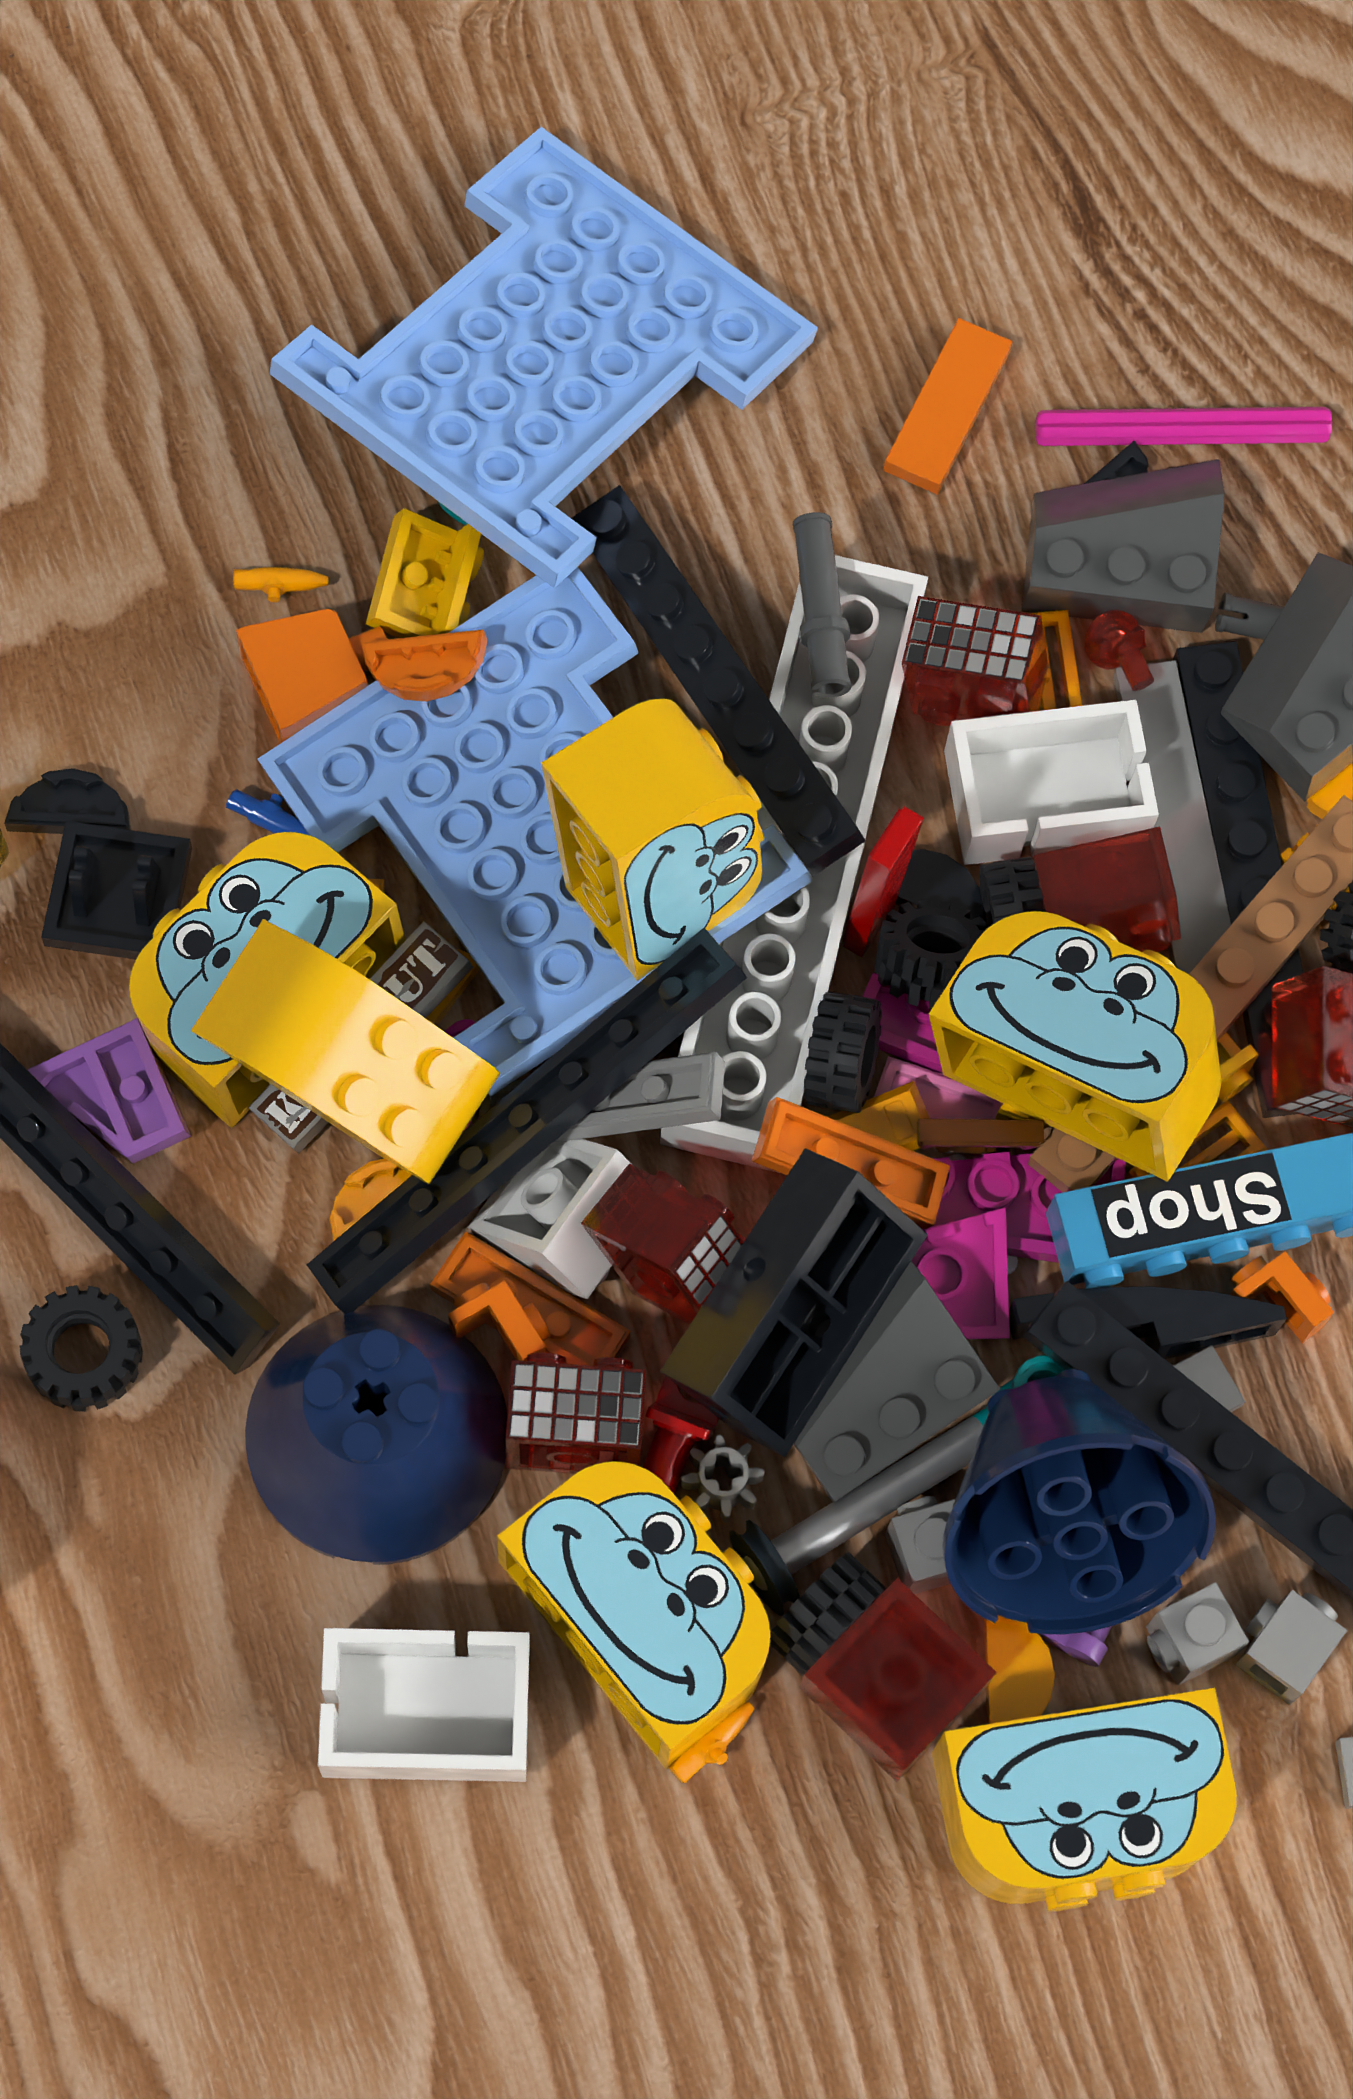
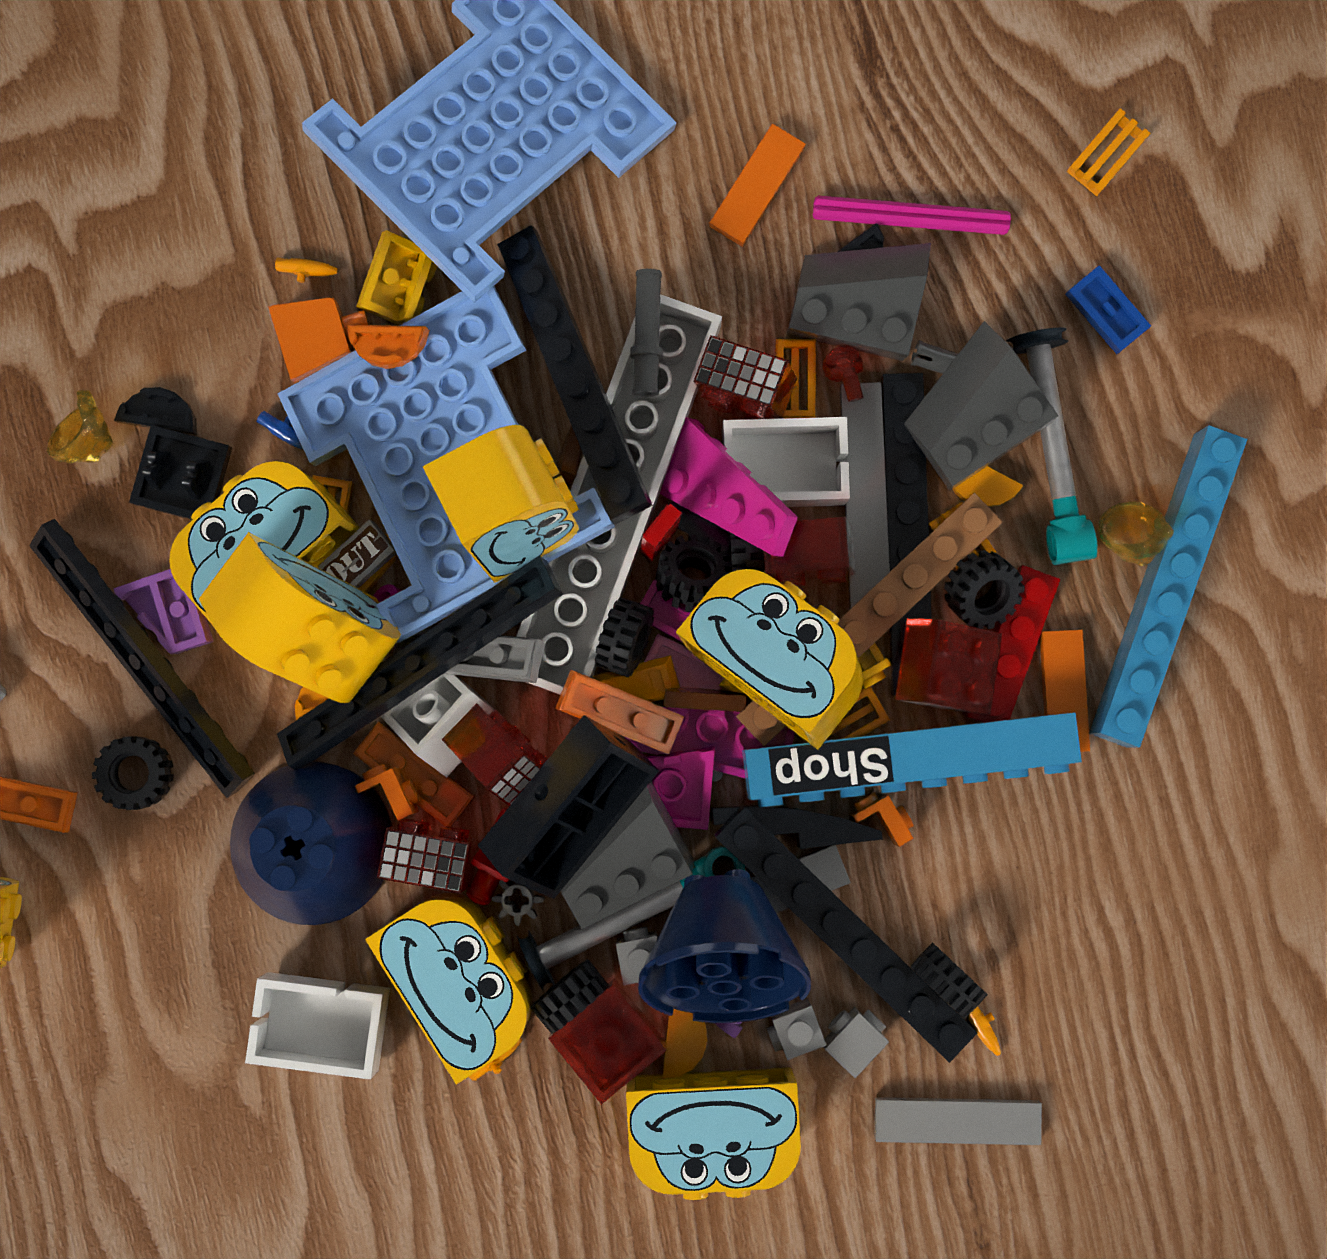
camera: 10 degrees right, 15 degrees up
(975, 817) = (724, 492): none -> dark pink wing

